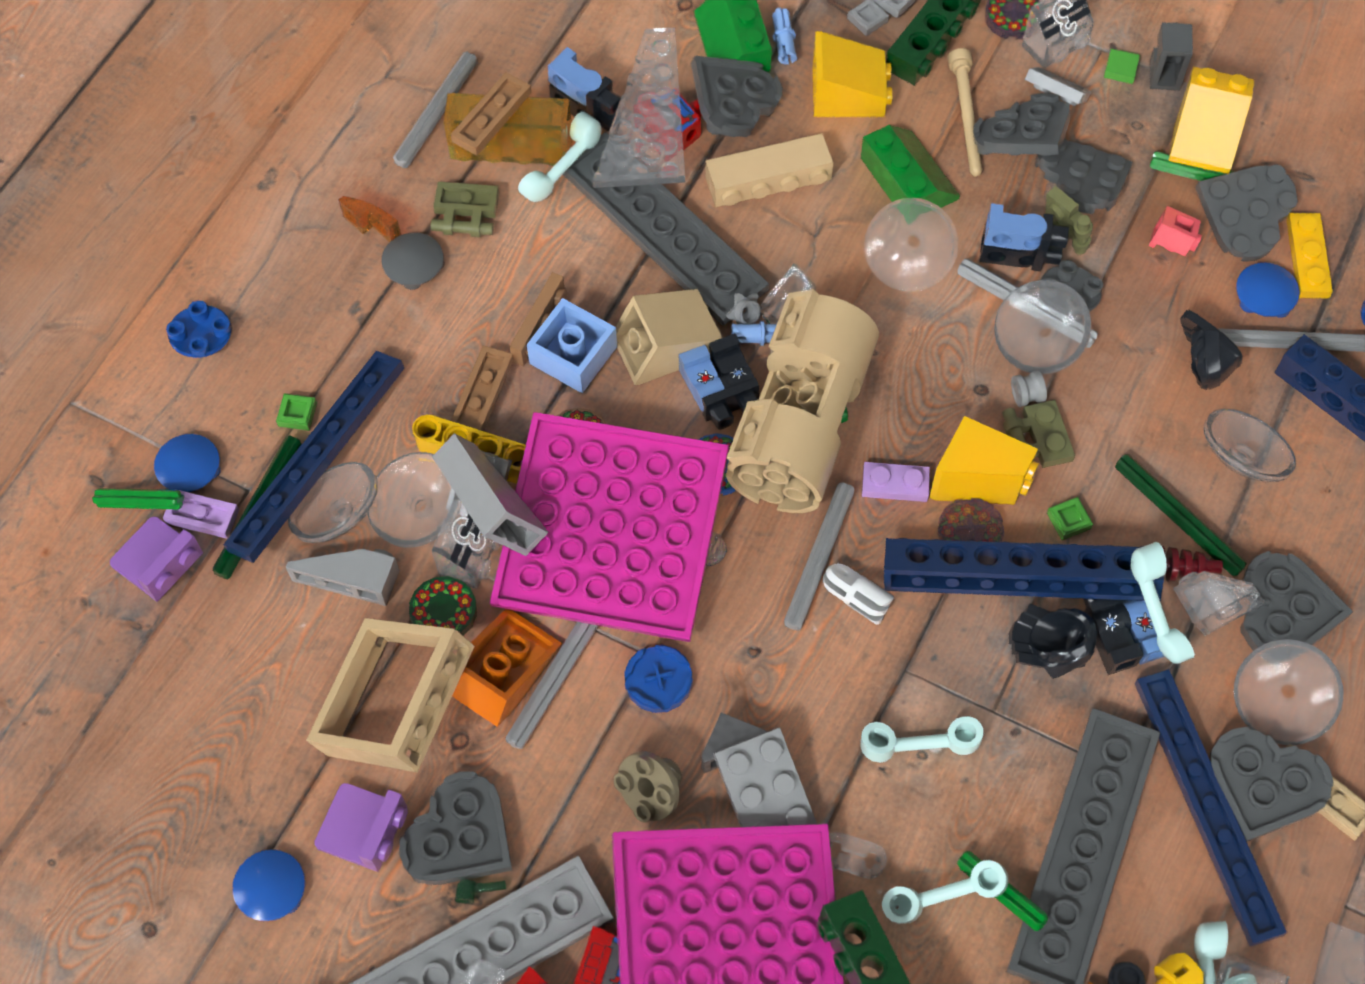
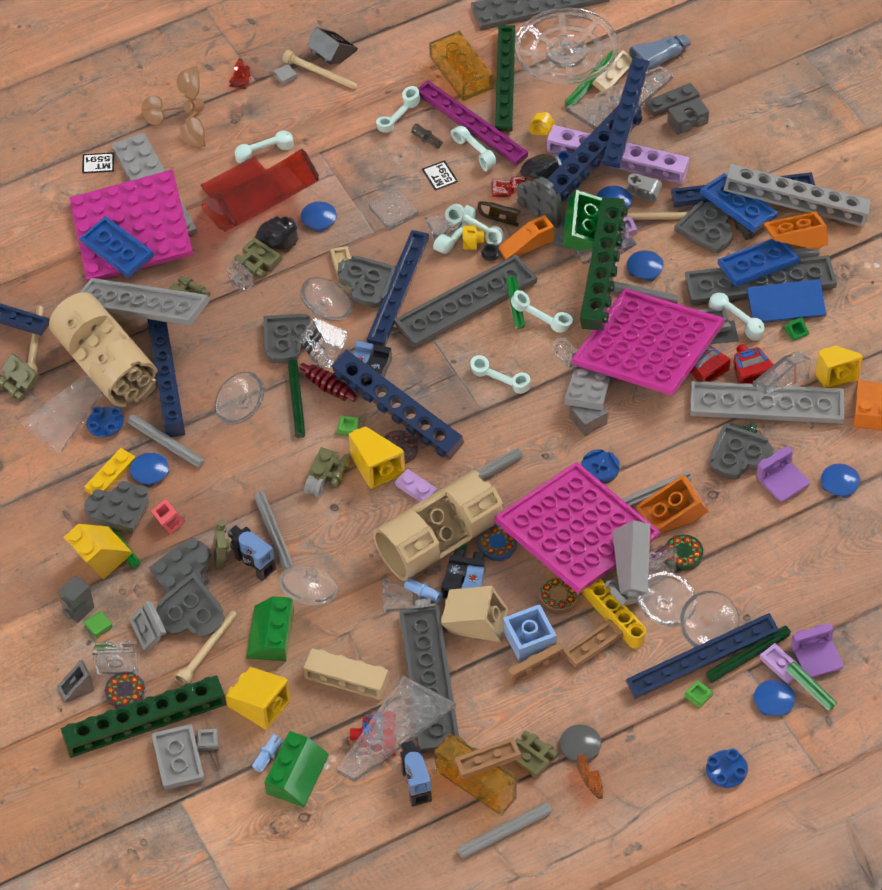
camera: 145 degrees left, 10 degrees down
(351, 573) = (714, 579): light grey slope -> none
(425, 707) = (709, 529): tan window -> none
(586, 133) = (479, 739): light aqua piece -> none
(649, 785) = (637, 418): dark tan plate -> none
(733, 94) = (331, 724): dark grey plate -> none
(857, 592) = (477, 445): white arm -> none
(1038, 307) = (283, 503): clear dish -> none
(1053, 639) = (406, 375): black hair -> none
(1080, 280) = (247, 516): dark grey dish -> none
(1147, 565) = (350, 352): light aqua piece -> none
(1211, 351) = (214, 446): black hair -> none

